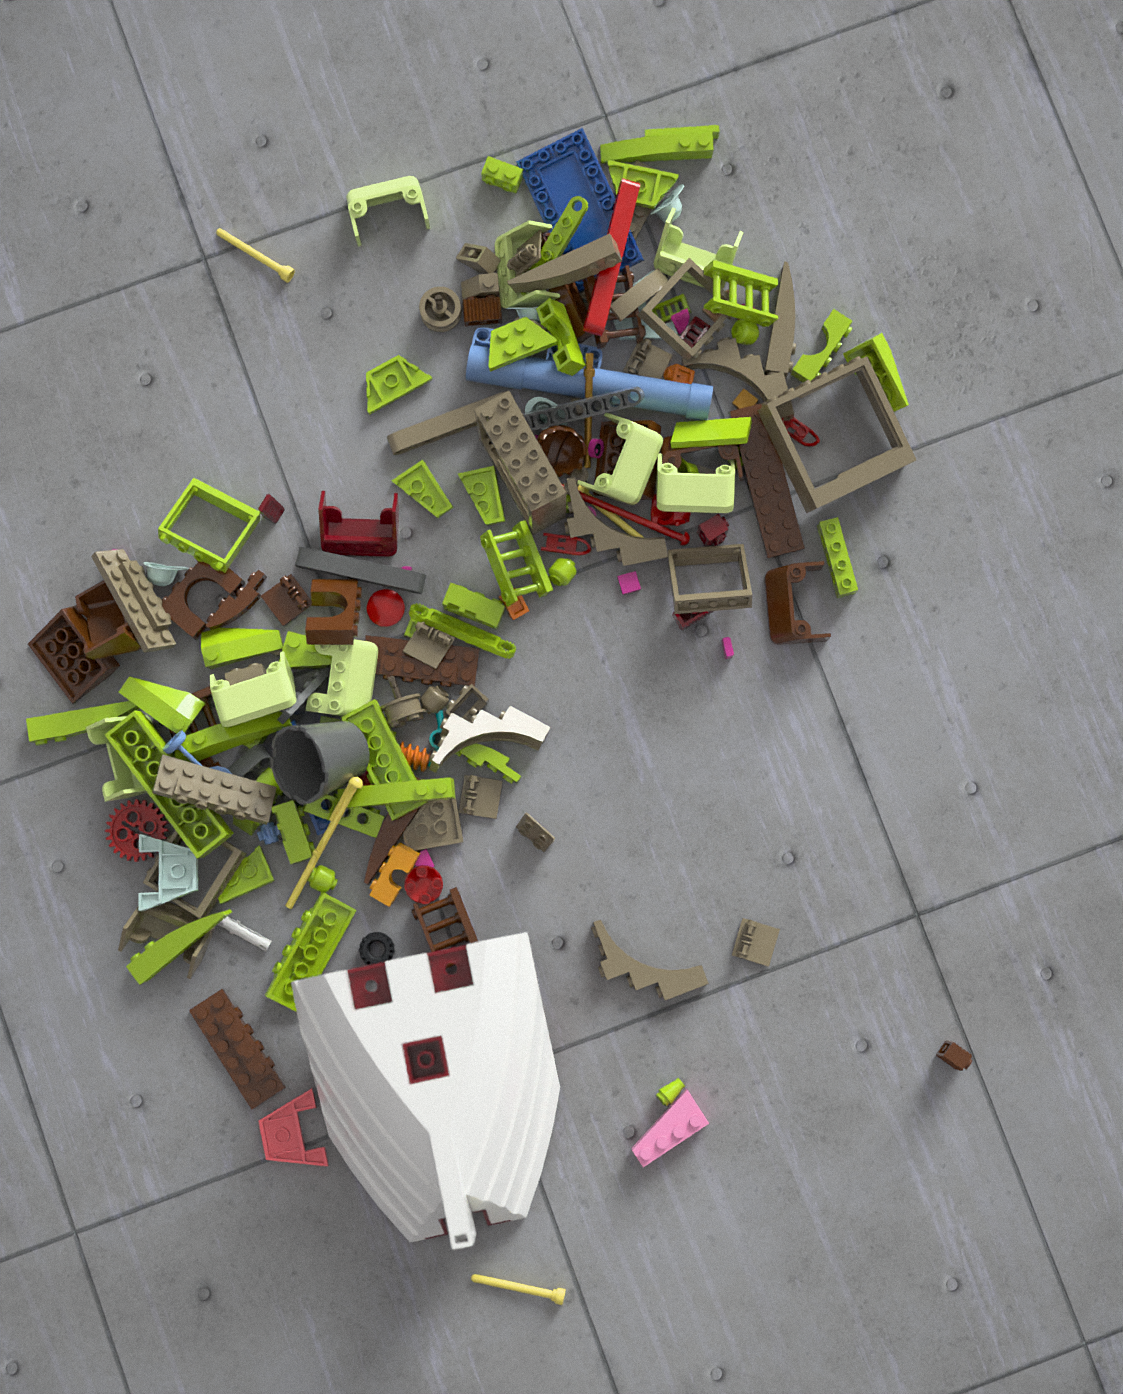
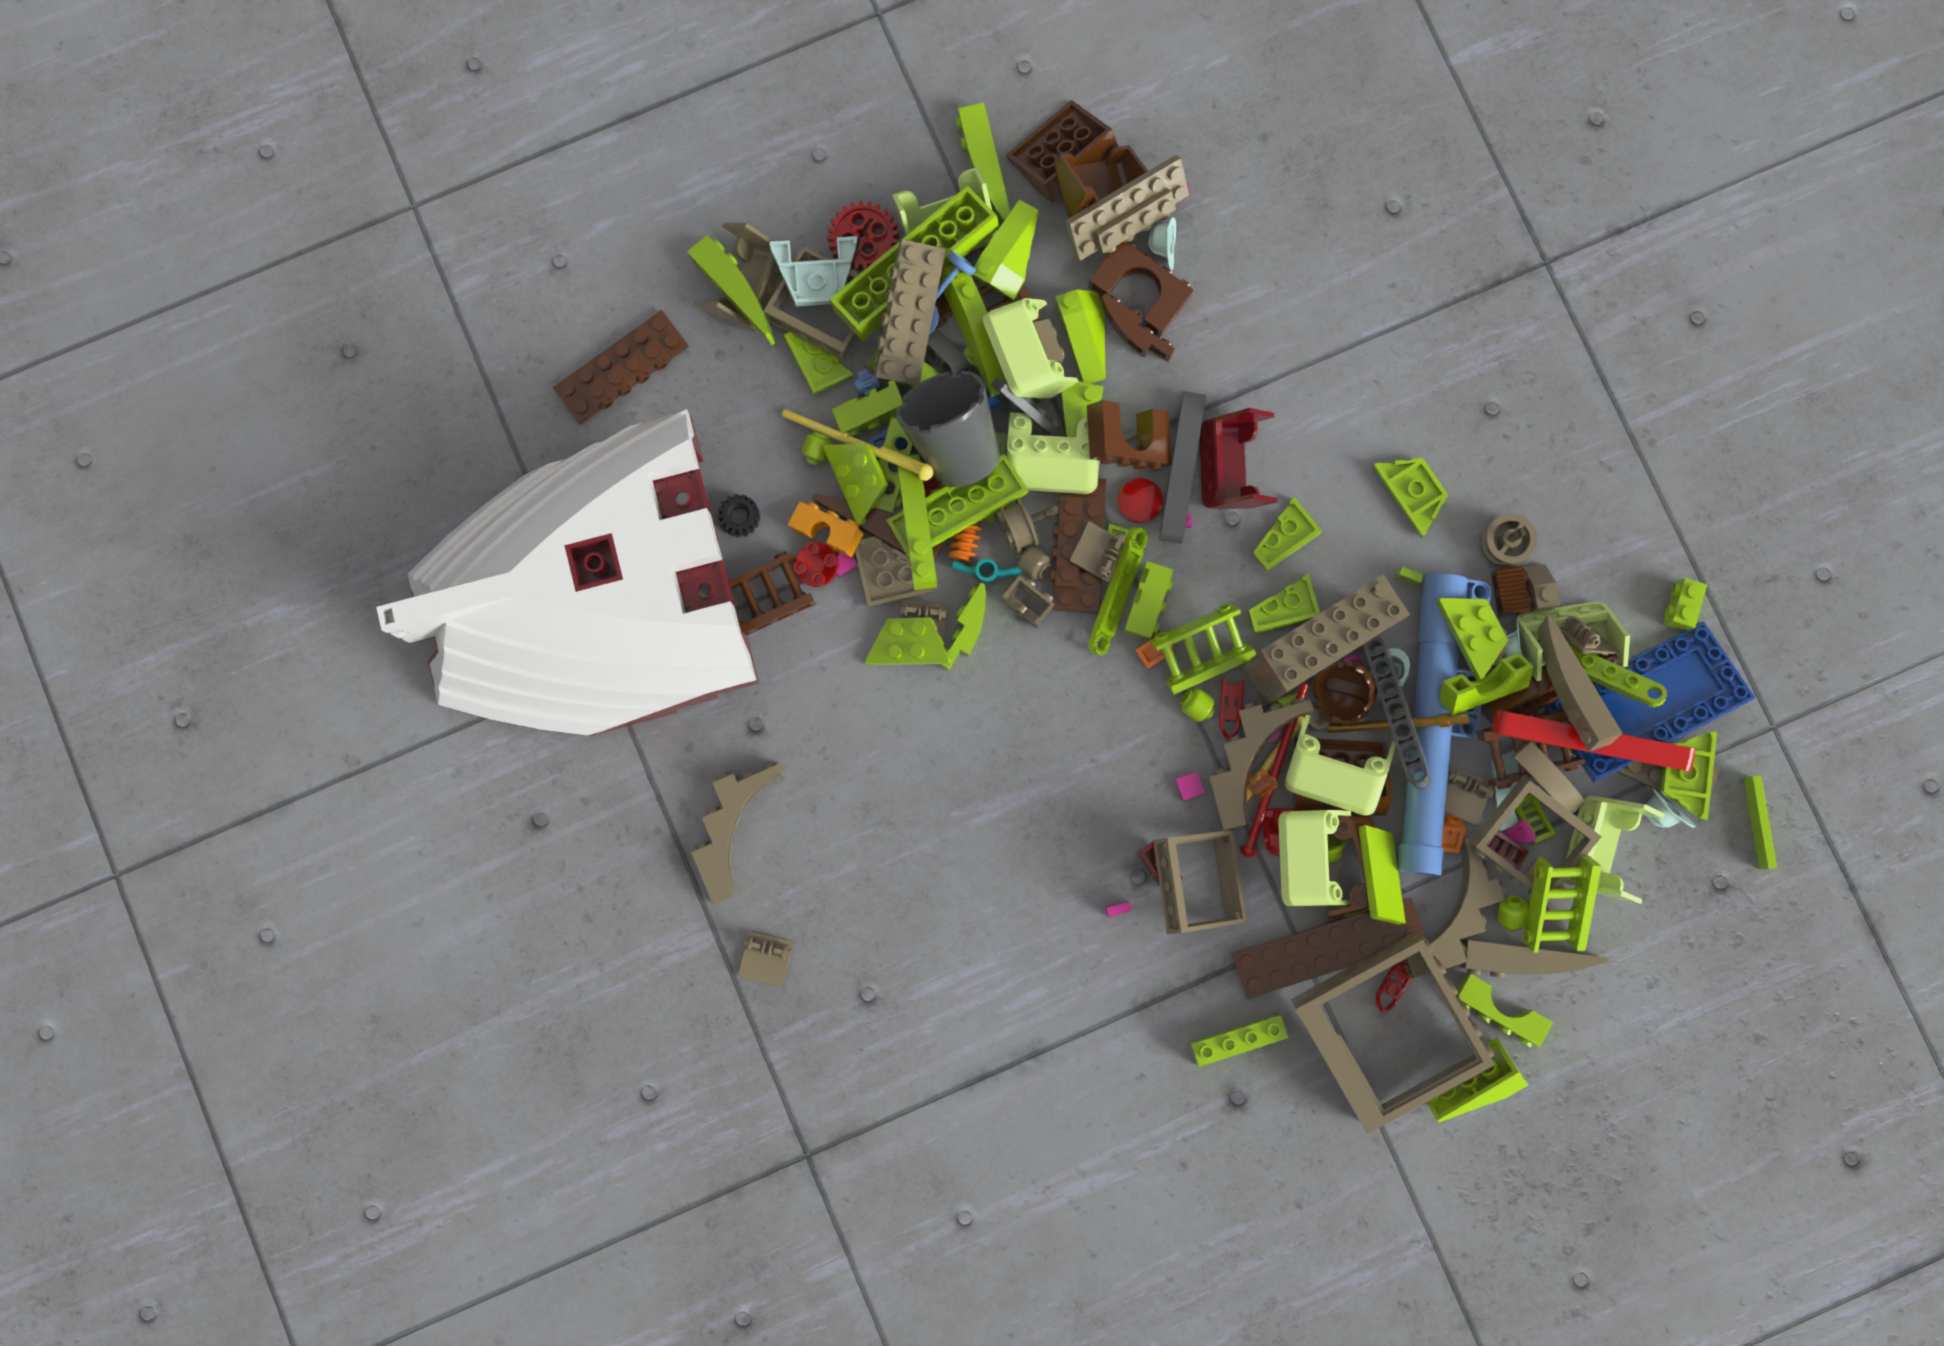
camera: 90 degrees right, 0 degrees up
(219, 500) = (1267, 273): lime window -> none
(247, 934) = (756, 356): white pin -> none
(271, 509) = (1248, 358): dark red slope -> none
(283, 1134) = (523, 425): coral wing -> none
(285, 272) = (1538, 355): light yellow piece -> none
(287, 599) = (1142, 385): reddish brown hinge -> none
(310, 947) = (739, 440): lime plate -> none
(352, 842) = (857, 476): none -> lime wing
(381, 193) = (1655, 487): yellowish green windscreen -> none
(435, 428) = (1362, 547): dark tan beam -> none
(464, 392) = (1409, 576): none -> lime tile
(478, 258) = (1576, 582): dark tan slope -> none
(484, 727) = (1003, 621): arch -> none
(497, 808) = (908, 643): none -> lime wing
(535, 832) = (888, 681): dark tan hinge -> none
(556, 1295) = (351, 744): light yellow piece -> none
(595, 448) = (1352, 736): dark pink tile -> none
(633, 522) = (1263, 785): none -> clear orange tile
(659, 148) = (1738, 796): lime slope -> none
(669, 1092) = (586, 865): lime cone -> none
(674, 1126) = (542, 867): bright pink wedge -> none
(713, 530) = (1260, 884): dark red brick -> none
(744, 400) = (1427, 916): pearl gold tile -> none
(780, 609) = (1175, 970): reddish brown windscreen -> none
(954, 1055) = (637, 1206): reddish brown brick -> none

